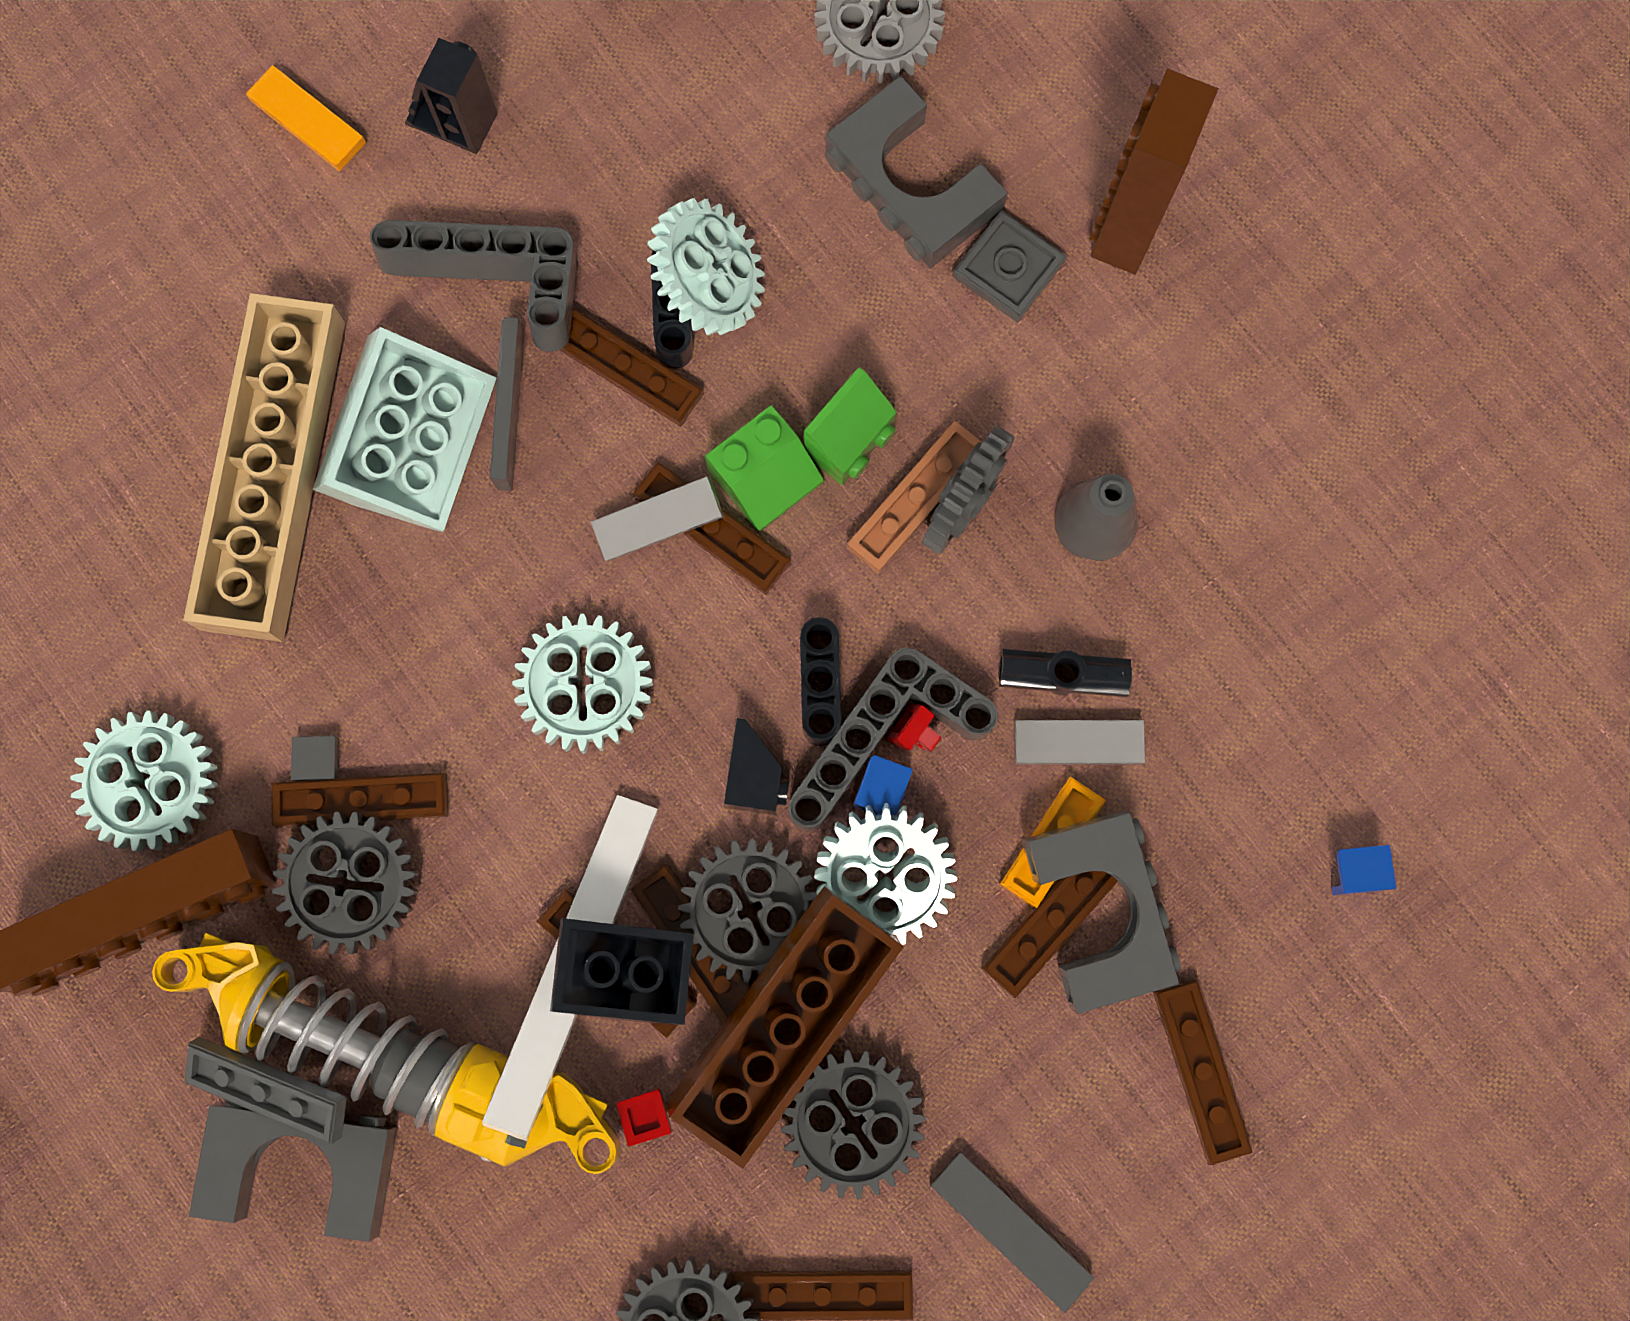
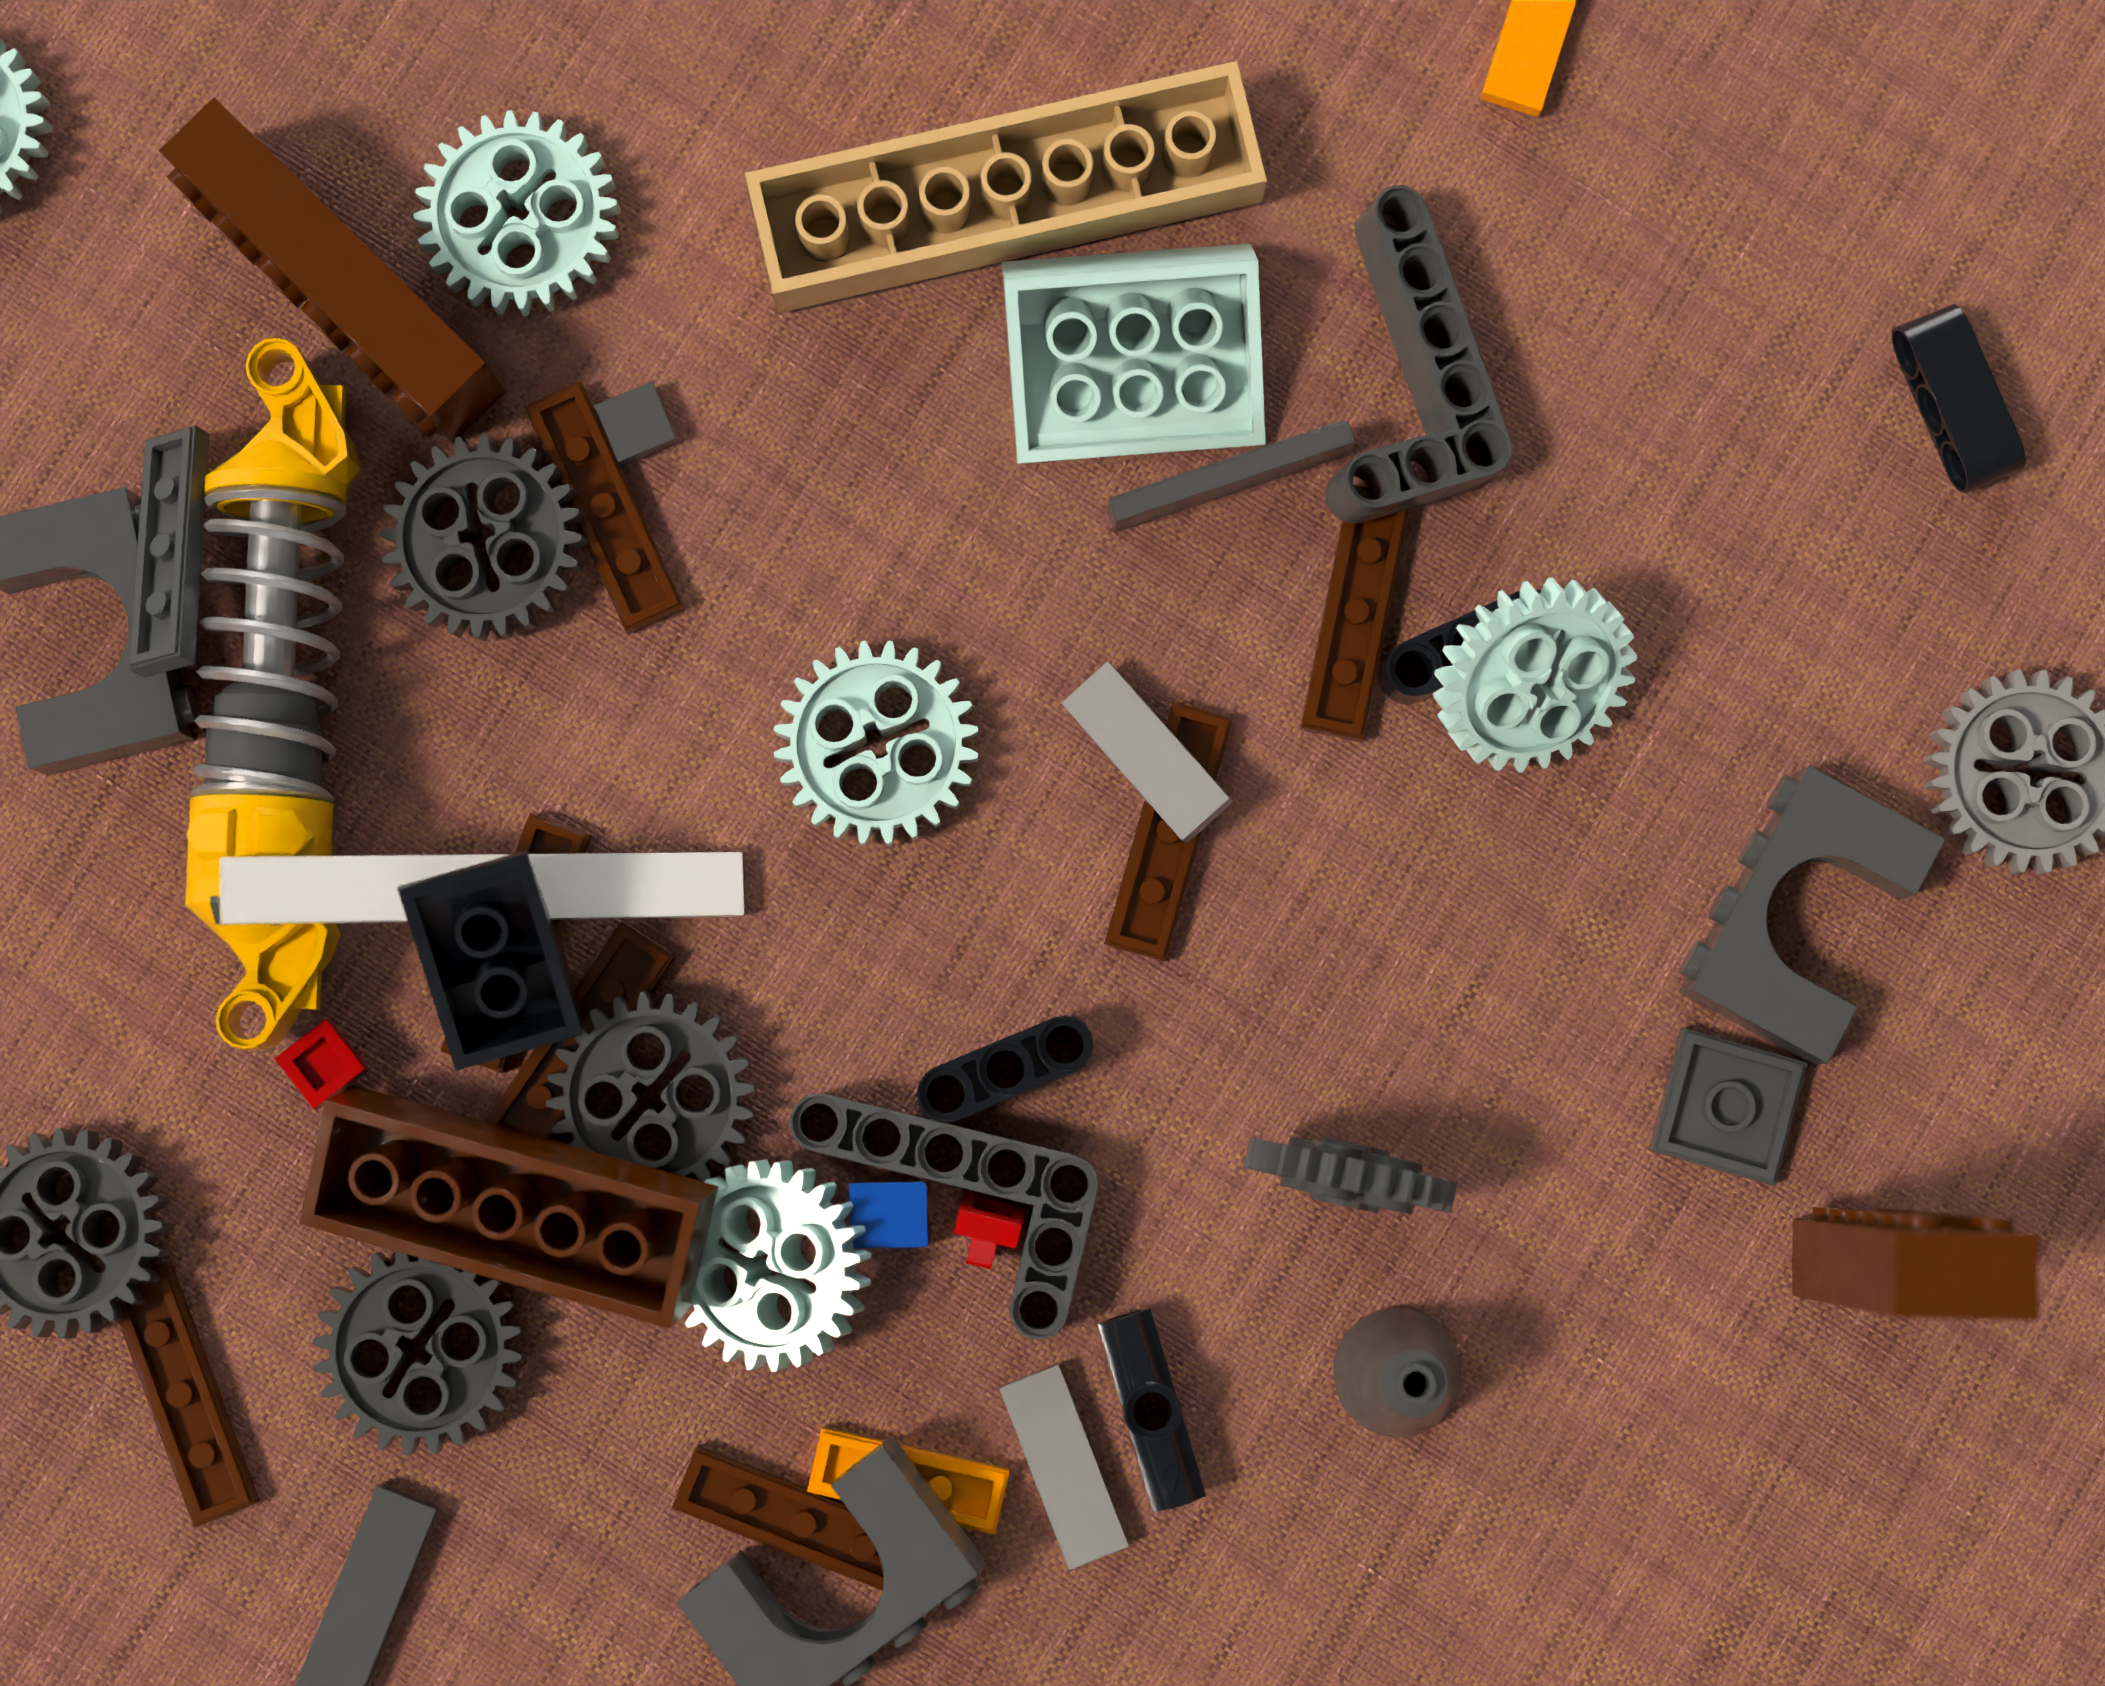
camera: 65 degrees right, 5 degrees up
(453, 97) = (1640, 218): black wedge -> none
(753, 775) = (840, 1028): black slope -> none
(764, 468) = (1279, 873): bright green slope -> none
(850, 428) = (1382, 973): bright green slope -> none
(912, 499) = (1324, 1102): nougat plate -> none

